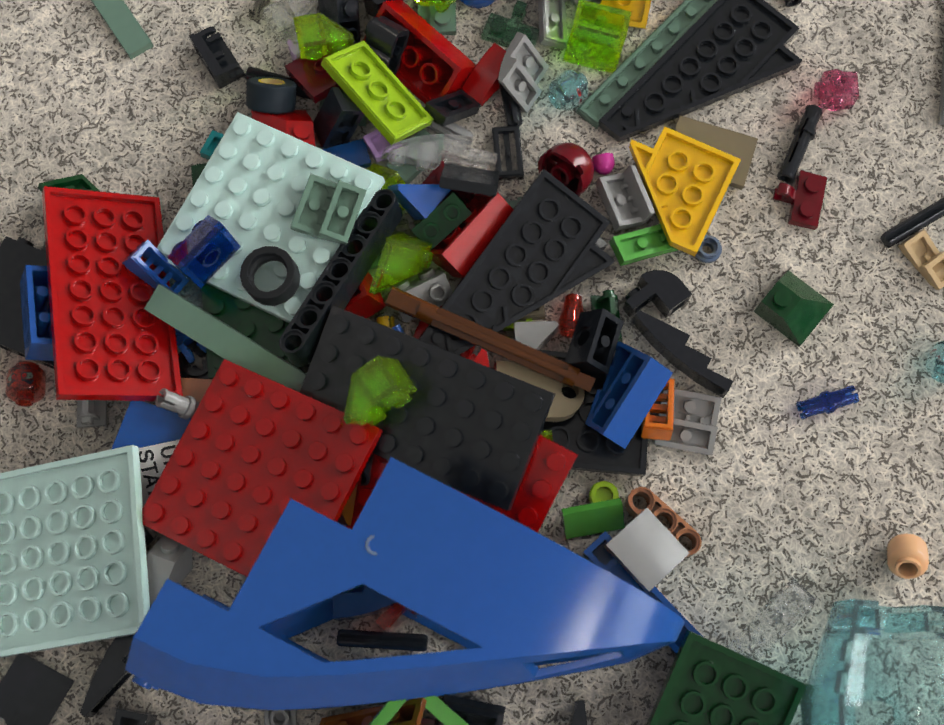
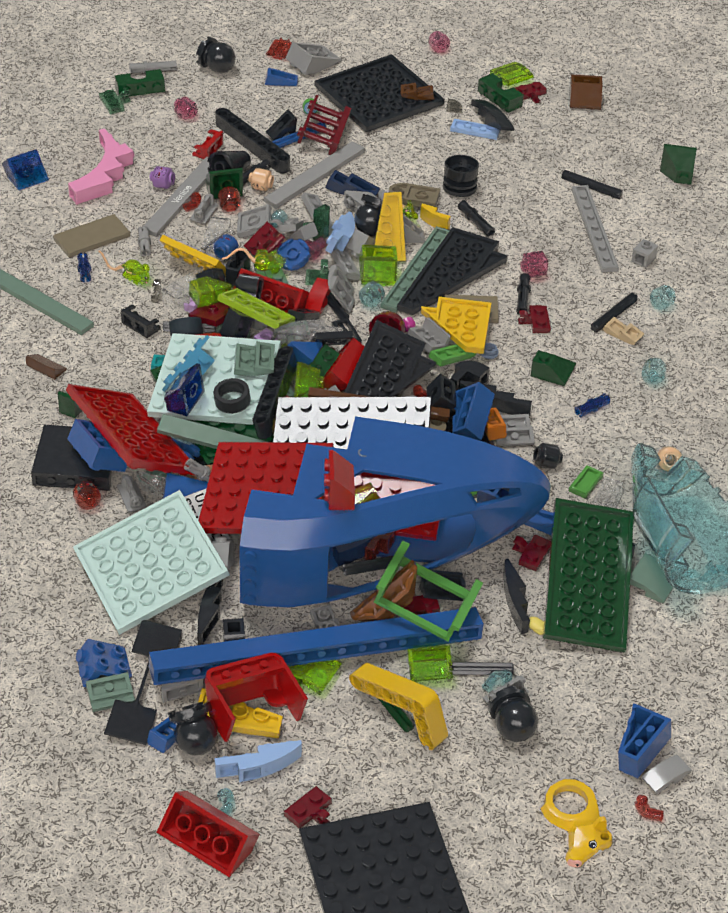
camera: 20 degrees left, 30 degrees down
(59, 107) = (45, 366): none -> reddish brown slope
(155, 257) = (147, 414): blue slope -> none
(236, 199) = (191, 358): none -> dark azure bracket
(297, 630) = (339, 482): none -> red slope
(376, 390) = (328, 416): clear neon green slope -> none
(635, 681) = (533, 553): none -> dark red plate
(721, 493) = (547, 455): none -> black head
(763, 556) = (586, 481): none -> bright green tile

